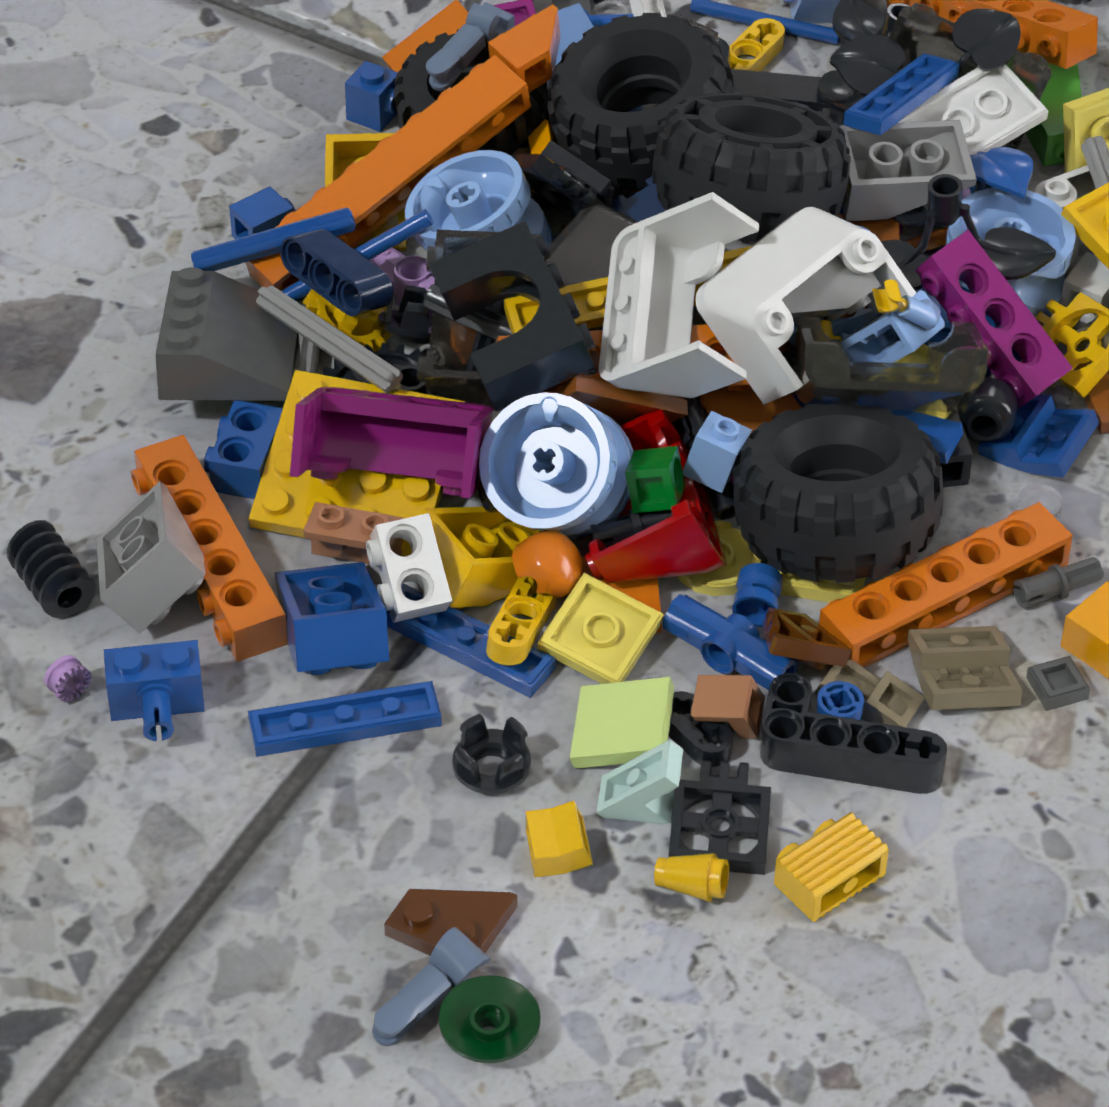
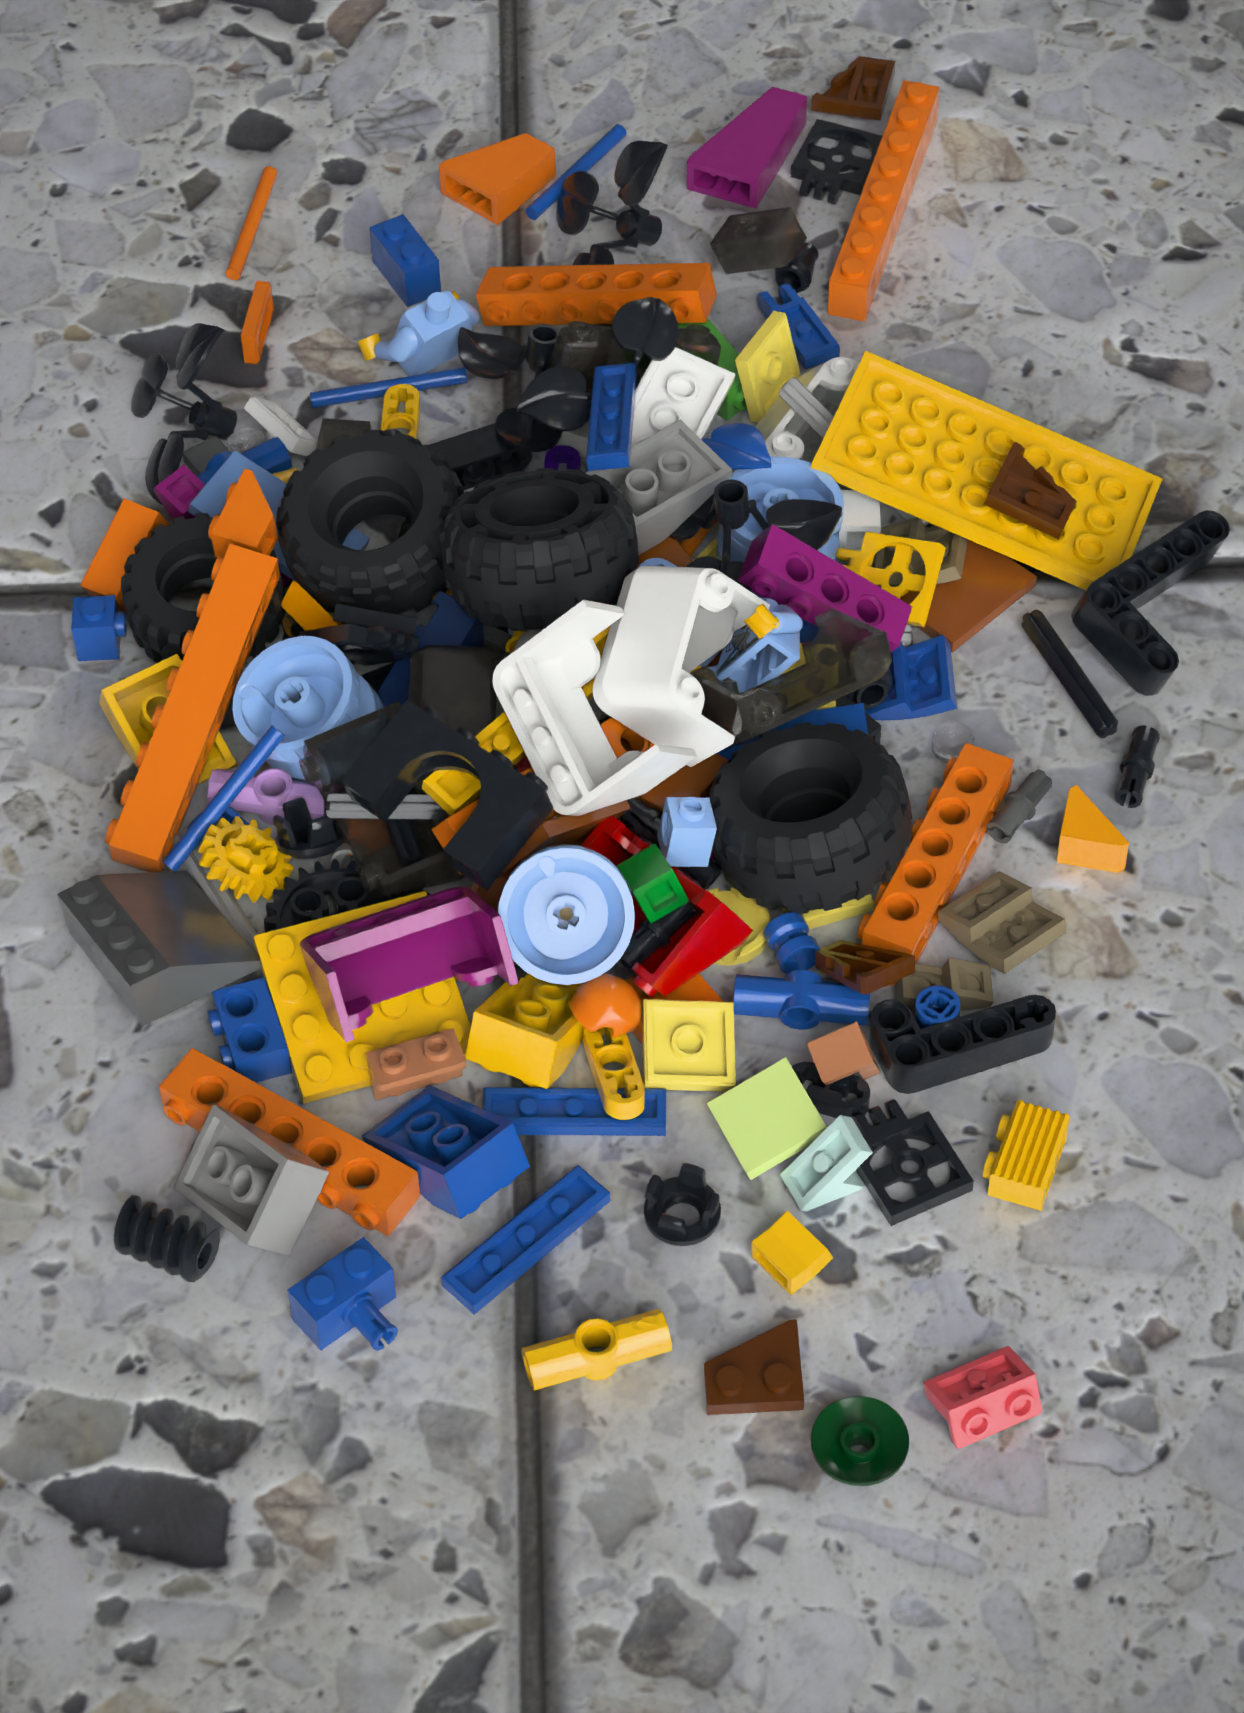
camera: 30 degrees left, 5 degrees up
(67, 678) = (259, 1332): lavender bush -> none
(258, 212) = (89, 802): blue brick -> none
(269, 241) = (135, 819): blue axle -> none
(326, 830) = (623, 1341): none -> yellow piece
(329, 339) = (259, 890): light grey axle -> none
(336, 272) = (225, 823): dark blue beam -> none
(421, 567) = (508, 1063): white brick -> none
(448, 966) = (794, 1414): sand blue piece -> none
(481, 24) = (184, 515): sand blue piece -> none
(631, 1044) = (985, 1396): none -> coral bracket
(694, 875) = (925, 1223): yellow cone -> none
(1058, 683) = (1081, 897): dark grey tile -> none

